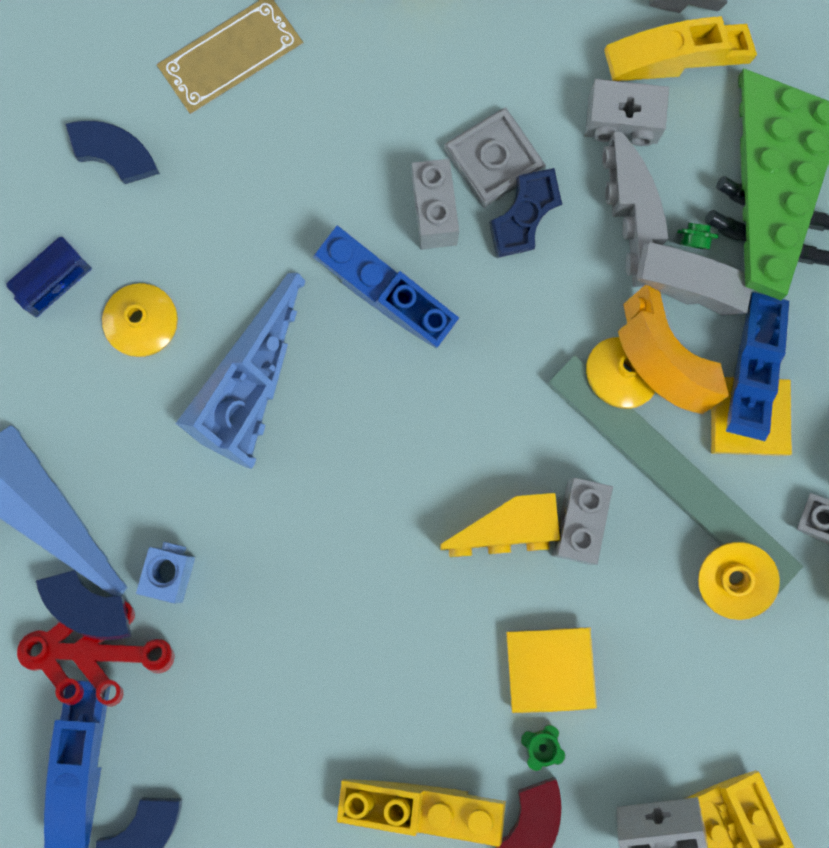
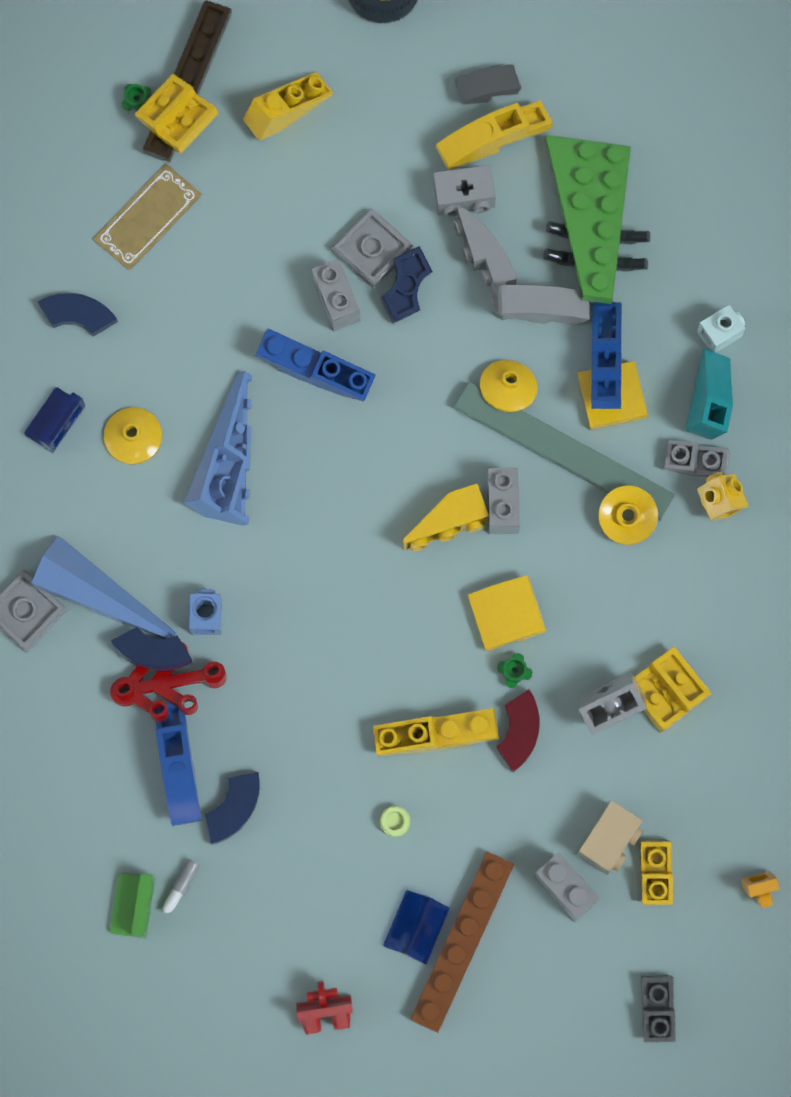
camera: 10 degrees left, 5 degrees down
(663, 361) = (533, 369): light orange arch -> none
(697, 236) = (540, 271): green plate -> none

